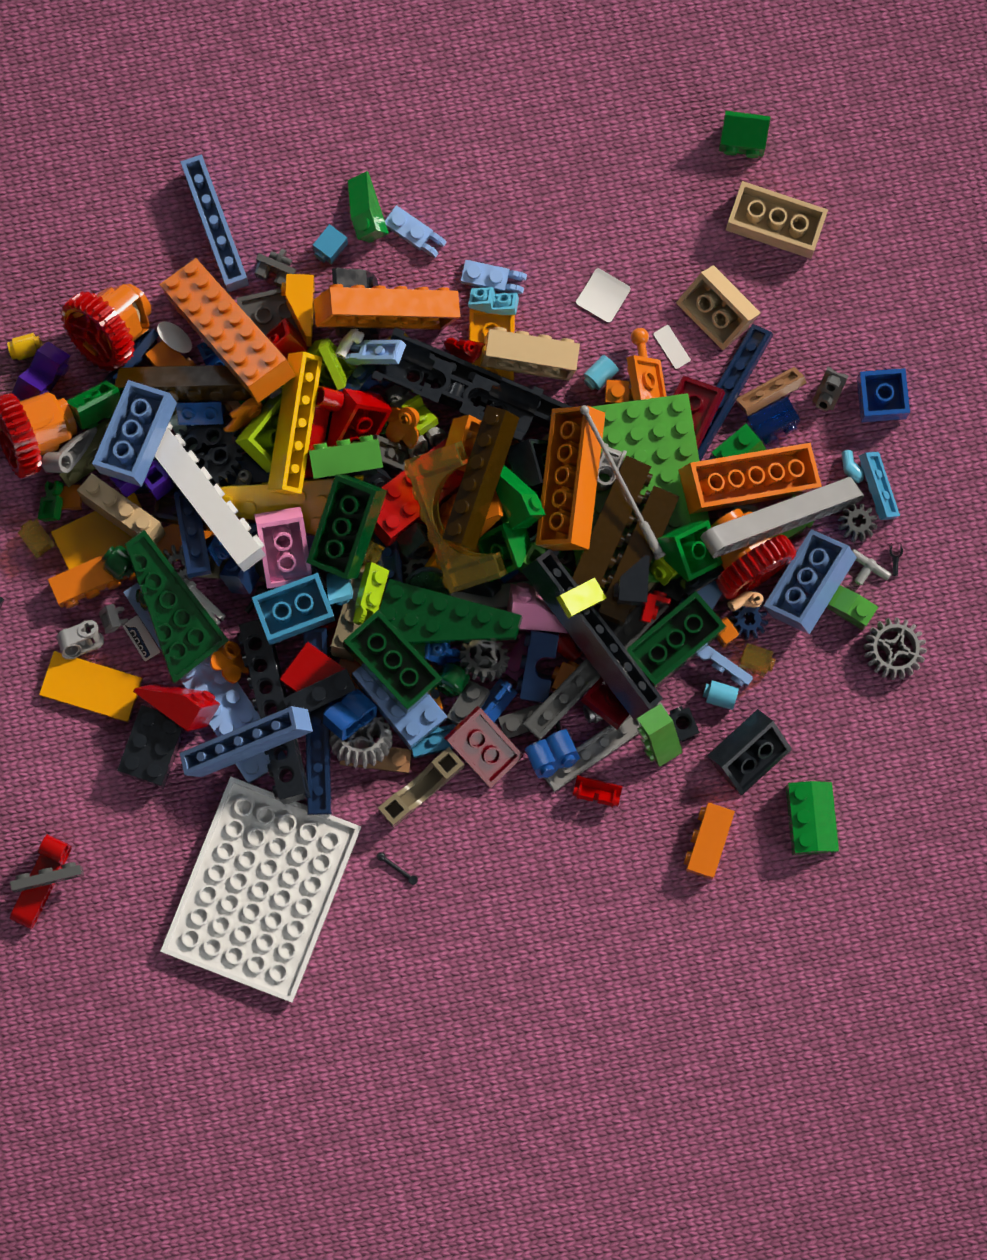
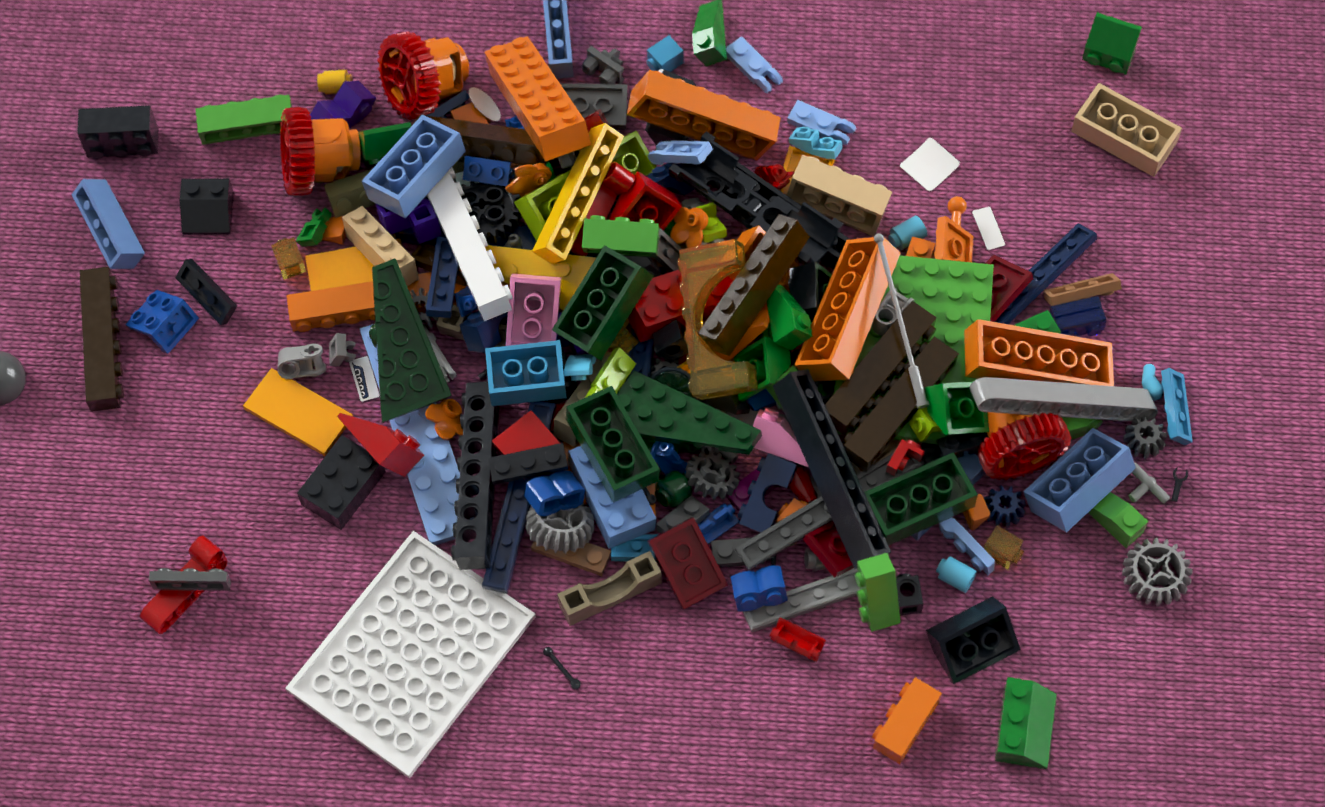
camera: 20 degrees right, 15 degrees down
(69, 454) = (342, 181): light grey piece -> none
(117, 562) = (360, 291): dark green head -> none
(246, 742) = (438, 490): medium blue brick -> none
(299, 299) = (617, 94): light orange slope -> none
(332, 363) = (633, 148): lime tile -> none
(346, 343) = (662, 133): white arm -> none
(581, 598) = (828, 423): neon yellow tile -> none
(633, 584) = (887, 424): black slope -> none
(718, 307) = (1045, 199): tan slope -> none
(747, 599) = (1005, 480): light nougat arm -> none
(829, 389) = (1145, 299): dark grey hips -> none
(883, 395) = (1200, 318): blue brick -> none

